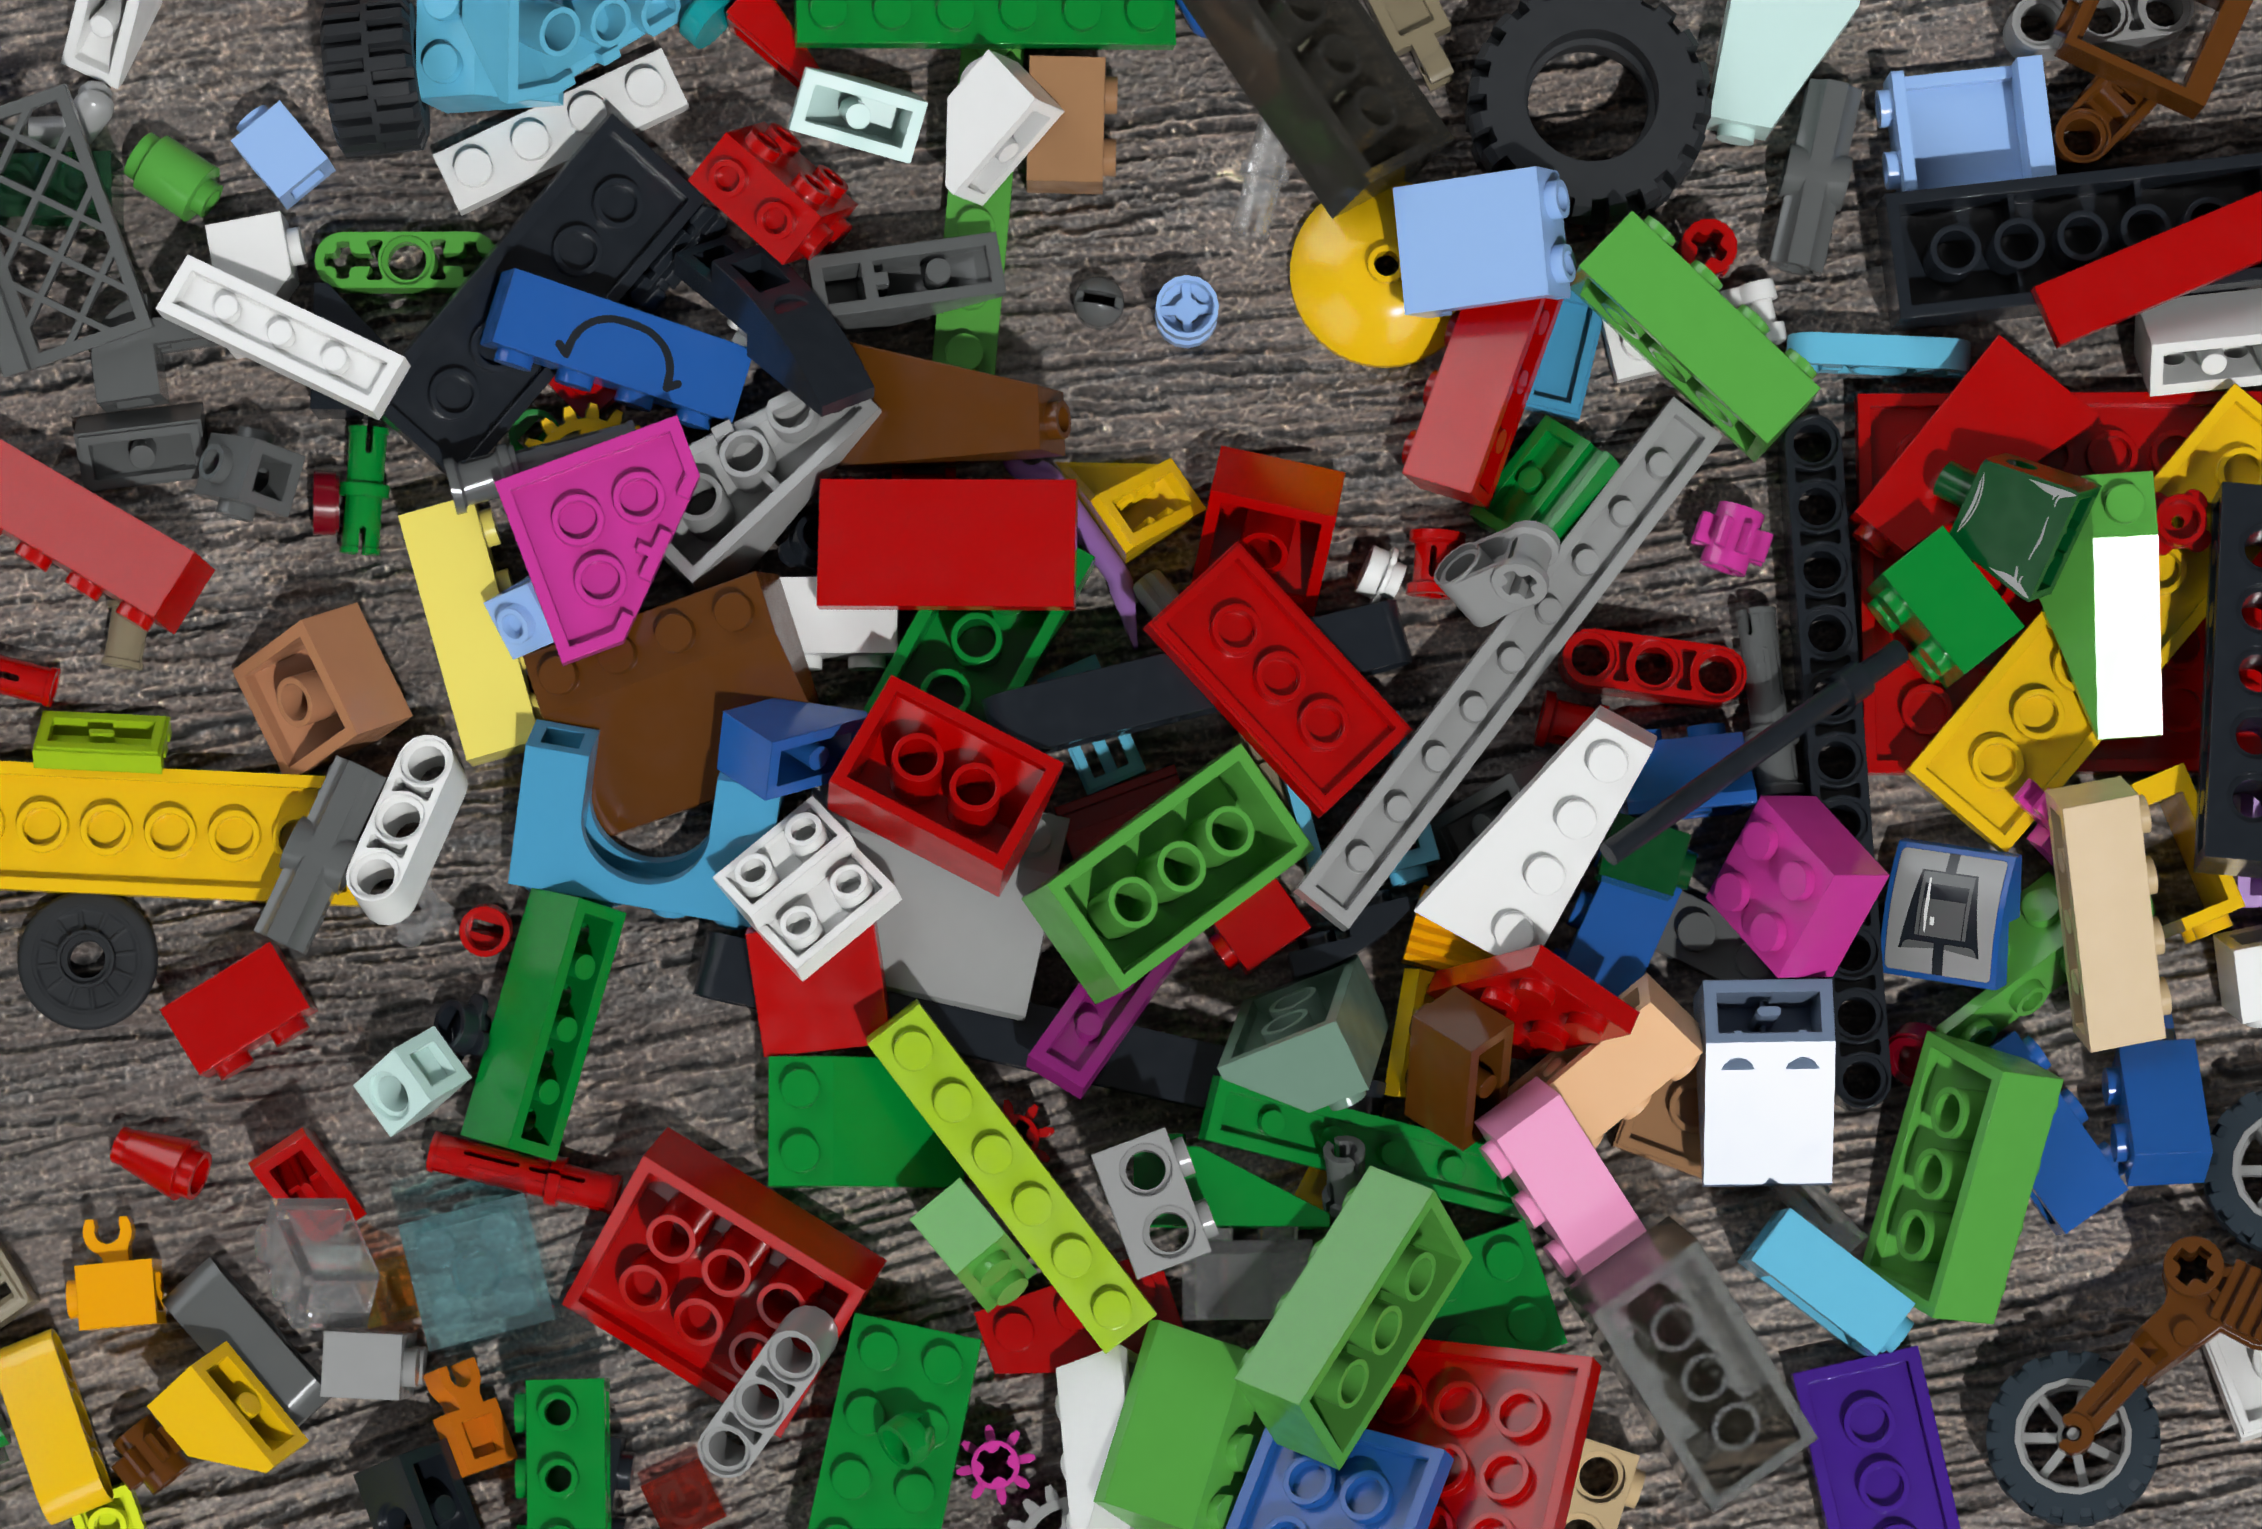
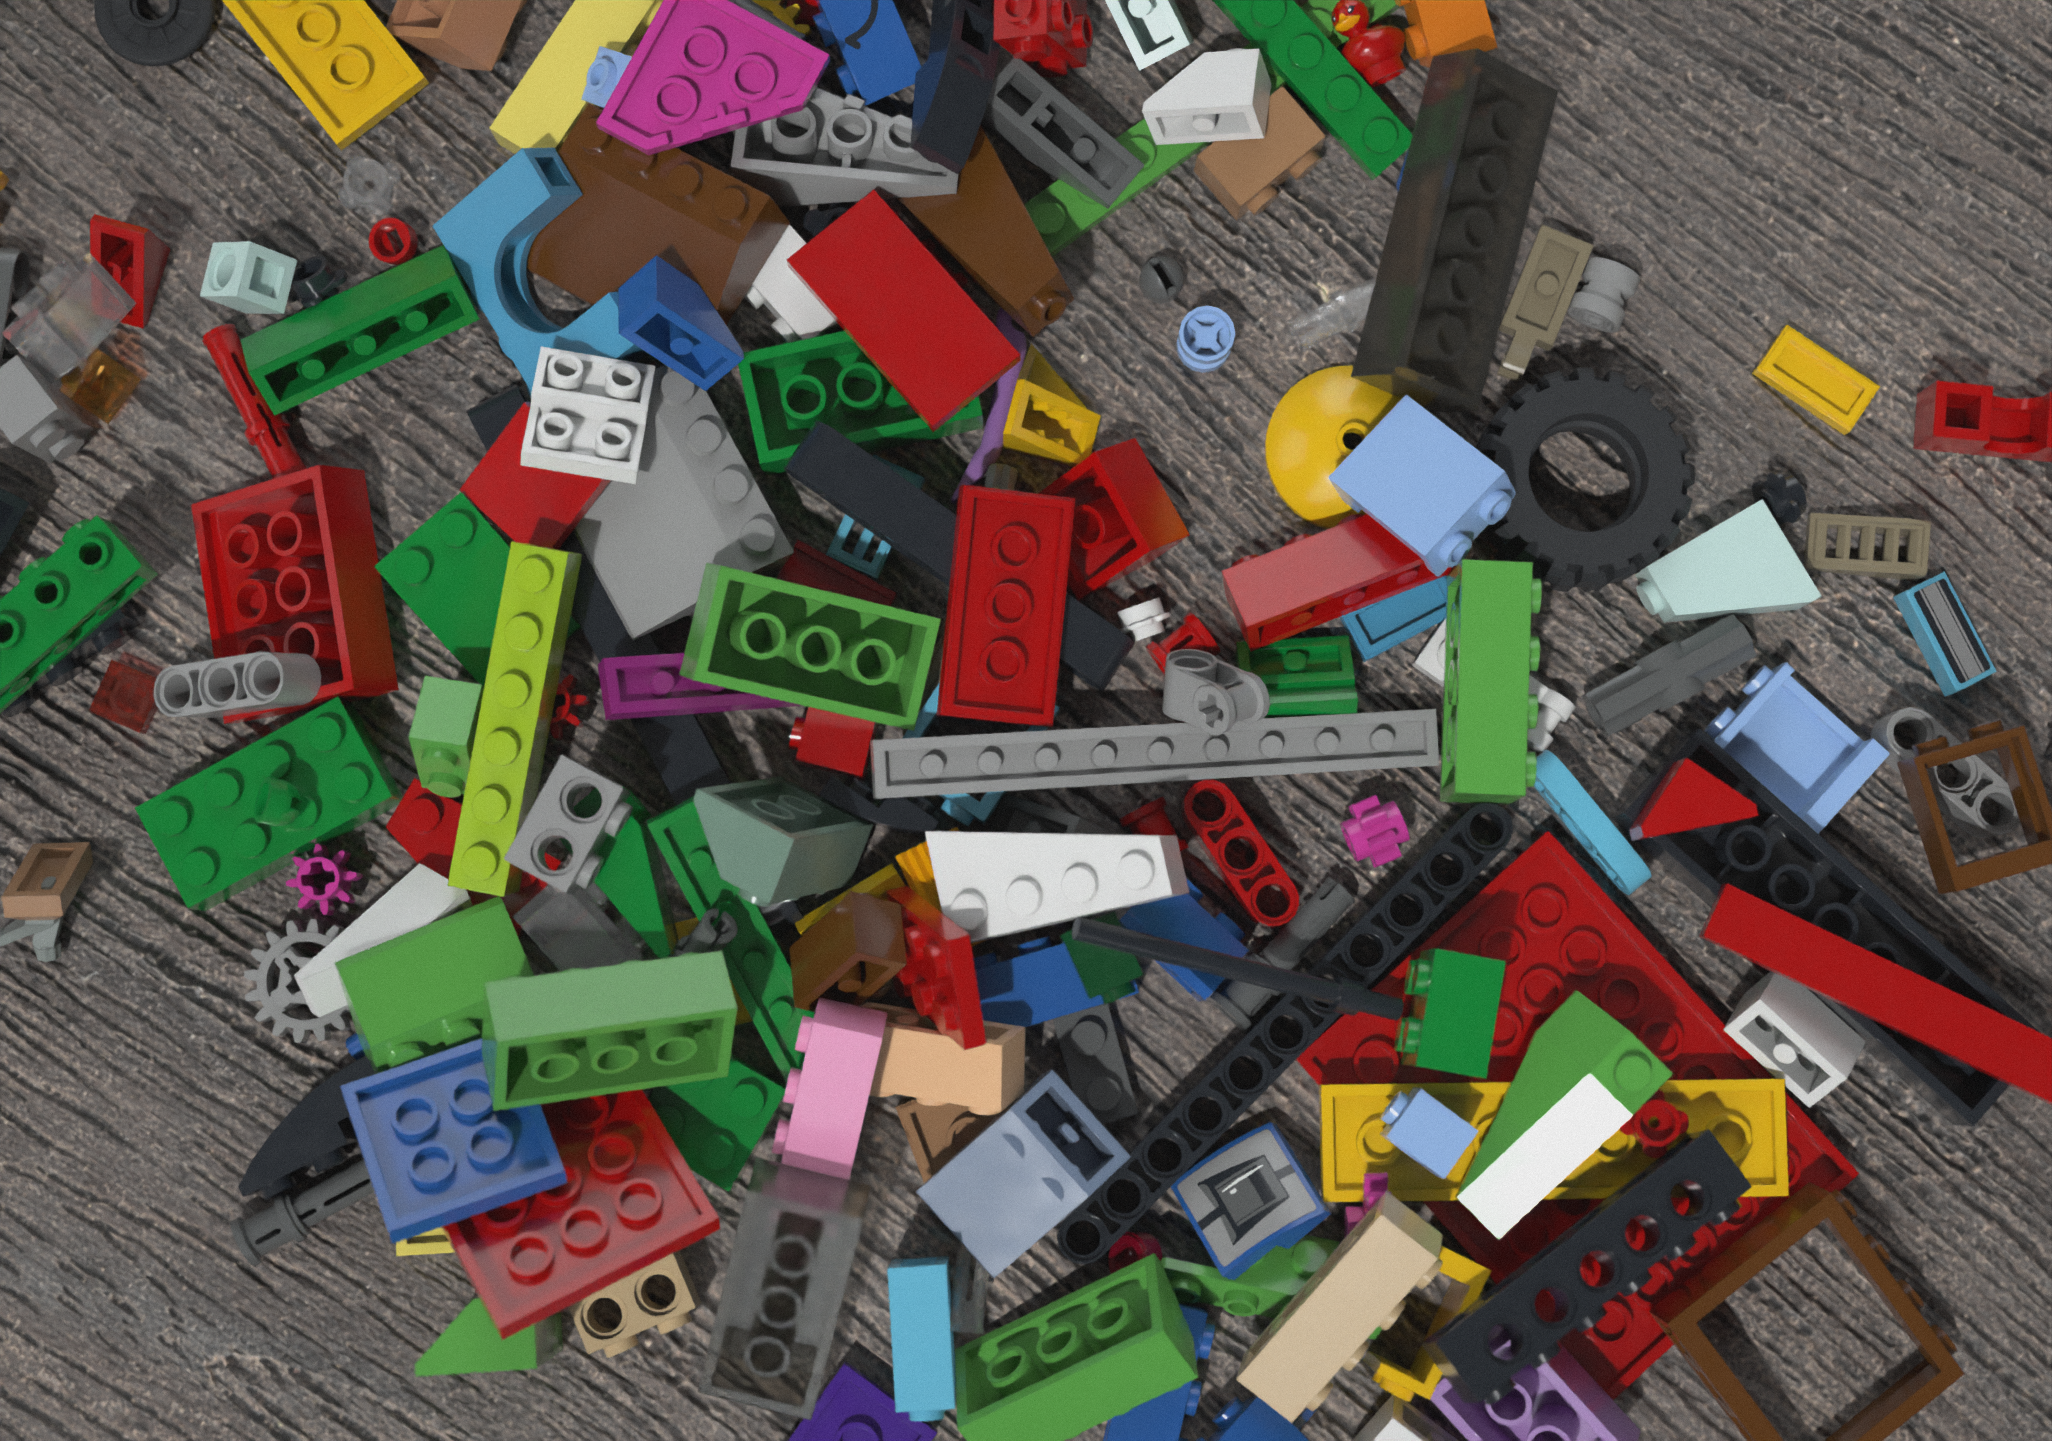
camera: 50 degrees right, 0 degrees up
(163, 1161) = (61, 168): red cone -> none
(240, 1012) = (201, 130): red brick -> none
(319, 855) = (343, 88): dark grey piece -> none
(402, 802) = (392, 149): white beam -> none
(471, 1425) = (56, 510): orange plate -> none
(480, 1272) = (161, 431): clear light blue brick -> none
(944, 785) = (733, 442): red slope -> none
(1713, 231) = (1562, 632): red bush -> none
(1797, 886) = (1173, 1078): dark pink brick -> none
(1939, 257) = (1688, 801): none -> red slope
(1994, 410) = (1584, 938): red slope -> none
(2017, 518) = (1556, 1009): dark green torso -> none
(2023, 714) = (1426, 1131): none -> light blue brick
(2104, 117) = (1886, 833): reddish brown piece -> none

